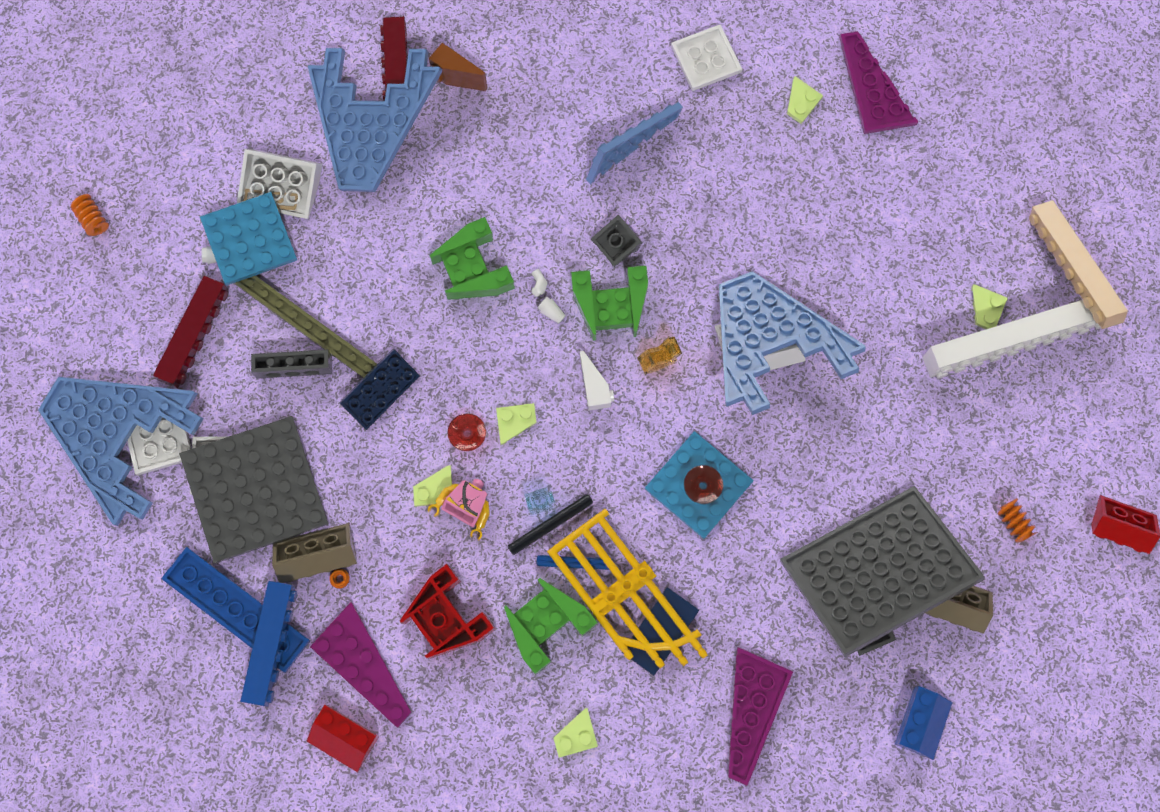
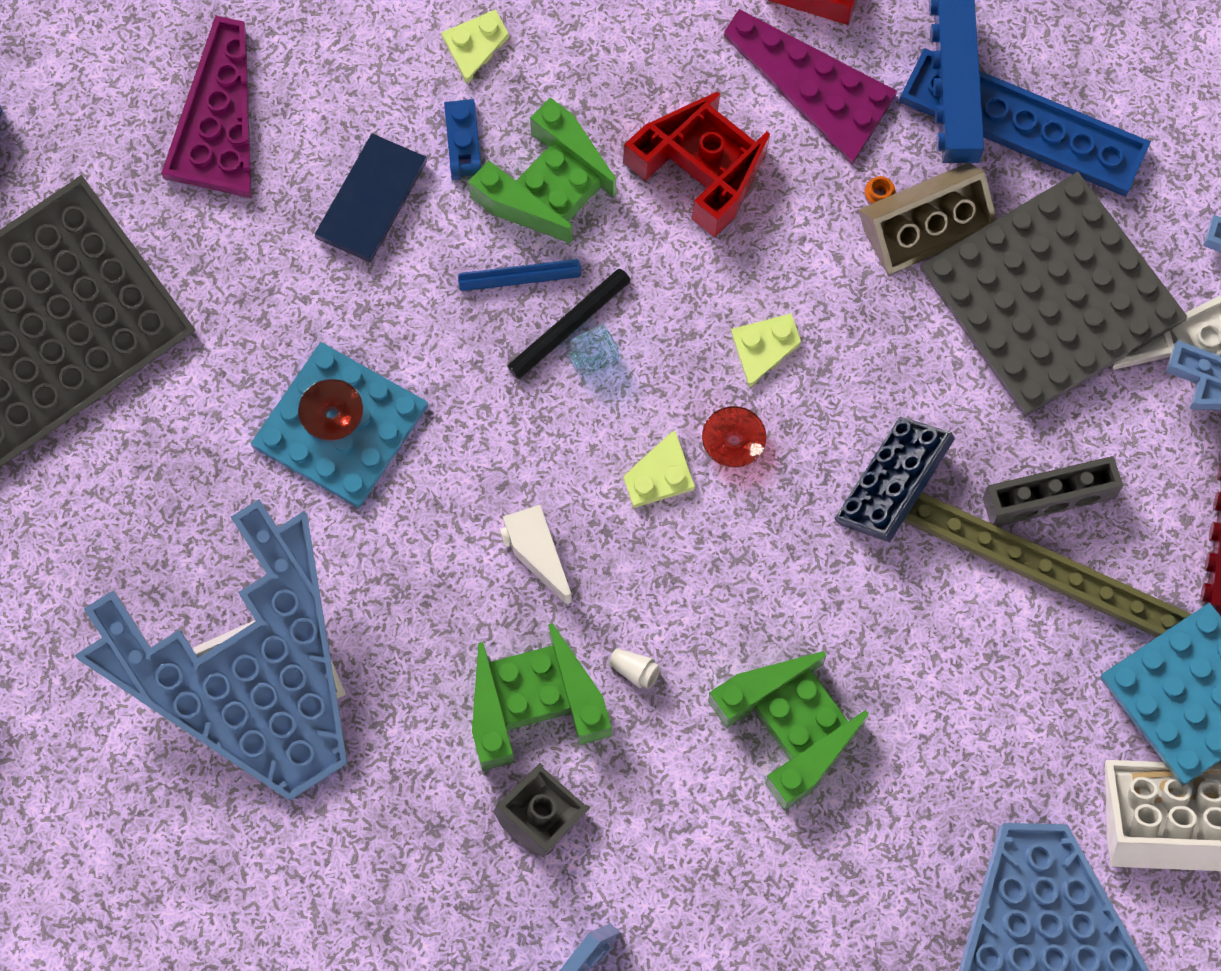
camera: 170 degrees right, 5 degrees down
(466, 503) = (710, 323): torso -> none
(541, 283) = (662, 714): white arm -> none
(595, 665) = (462, 137): none -> blue plate
(621, 590) = (439, 238): yellow piece -> none
(660, 357) = (434, 614): clear yellow brick -> none

